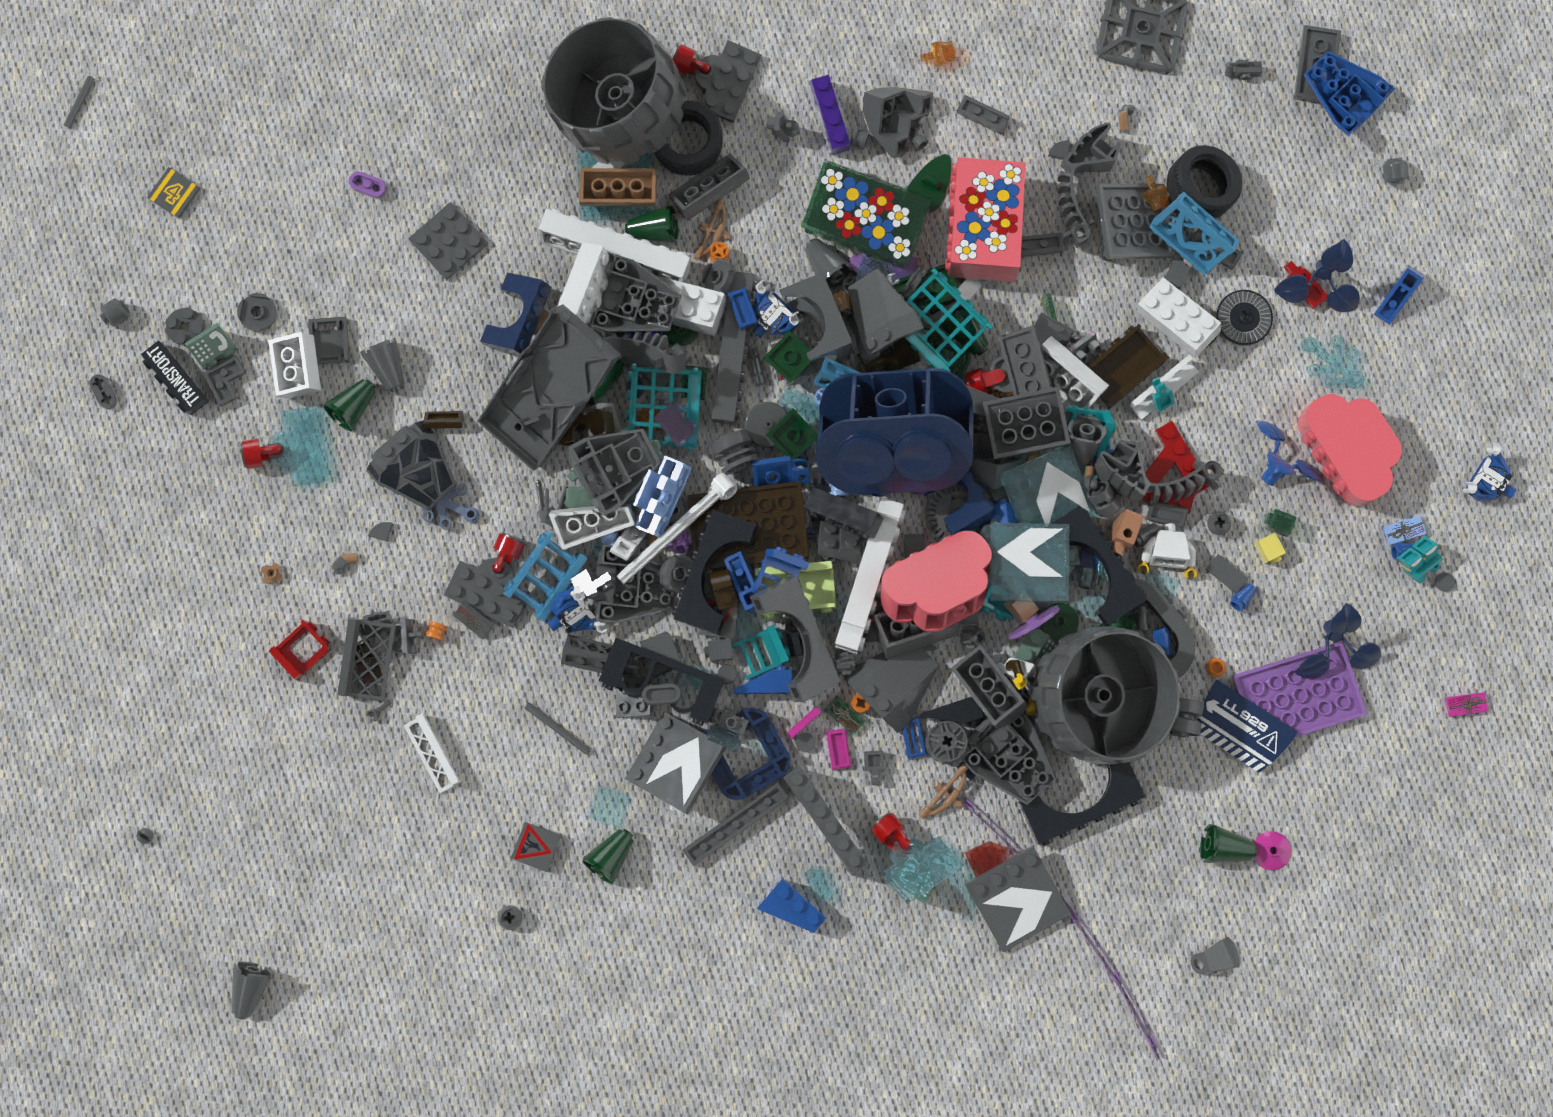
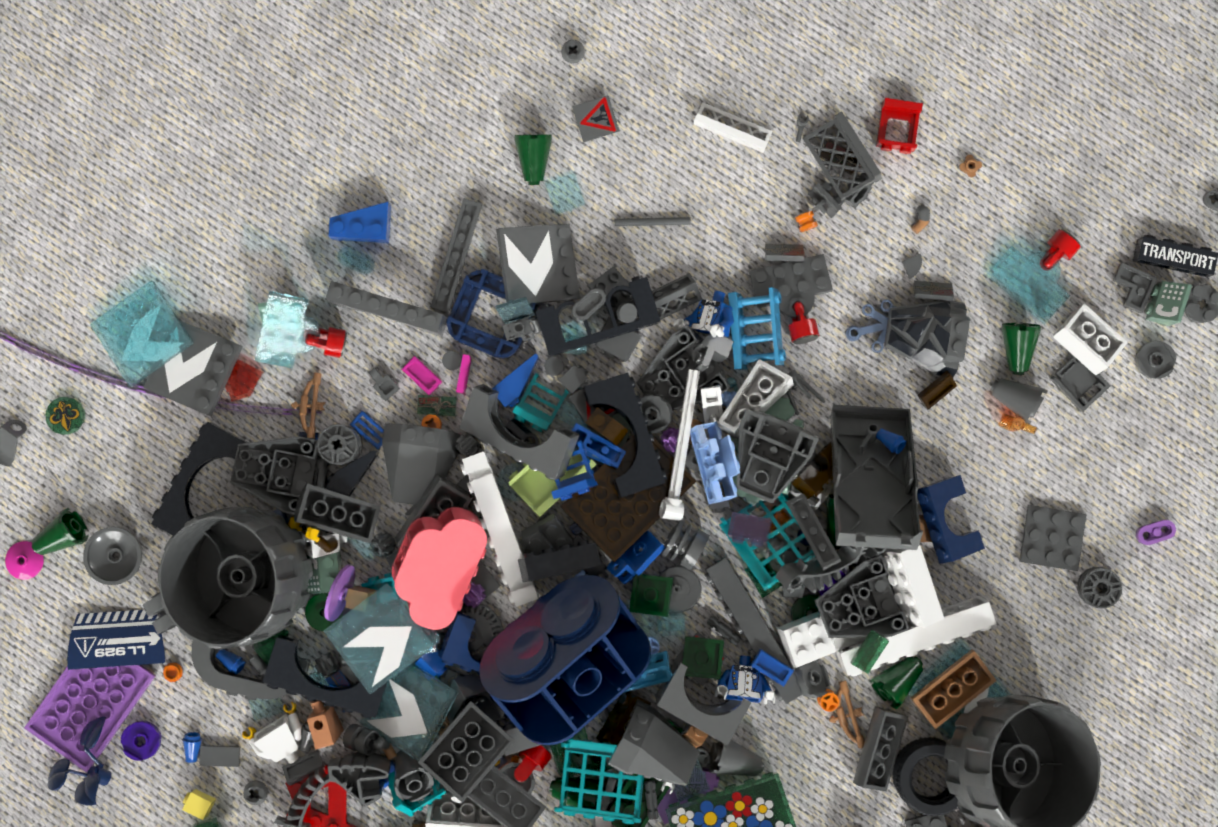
camera: 150 degrees right, 5 degrees up
(382, 498) = (933, 291): none -> dark grey tile
(409, 350) = (1010, 423): none -> clear orange piece
(444, 188) = (1111, 587): none -> dark grey wheel
(512, 406) = (892, 441): none -> blue cone
(628, 382) = (813, 531): none -> dark grey plate
(637, 664) = (626, 312): none -> dark grey tile
(659, 261) = (869, 651): none -> clear green tile
(928, 539) = (474, 596): none -> medium lavender gear
(1039, 960) = (141, 333): none -> clear light blue plate
(1152, 942) = (65, 415): none -> clear green tile
(1208, 791) = (100, 558): none -> dark grey dish
(1286, 623) = (130, 742): none -> dark purple plate

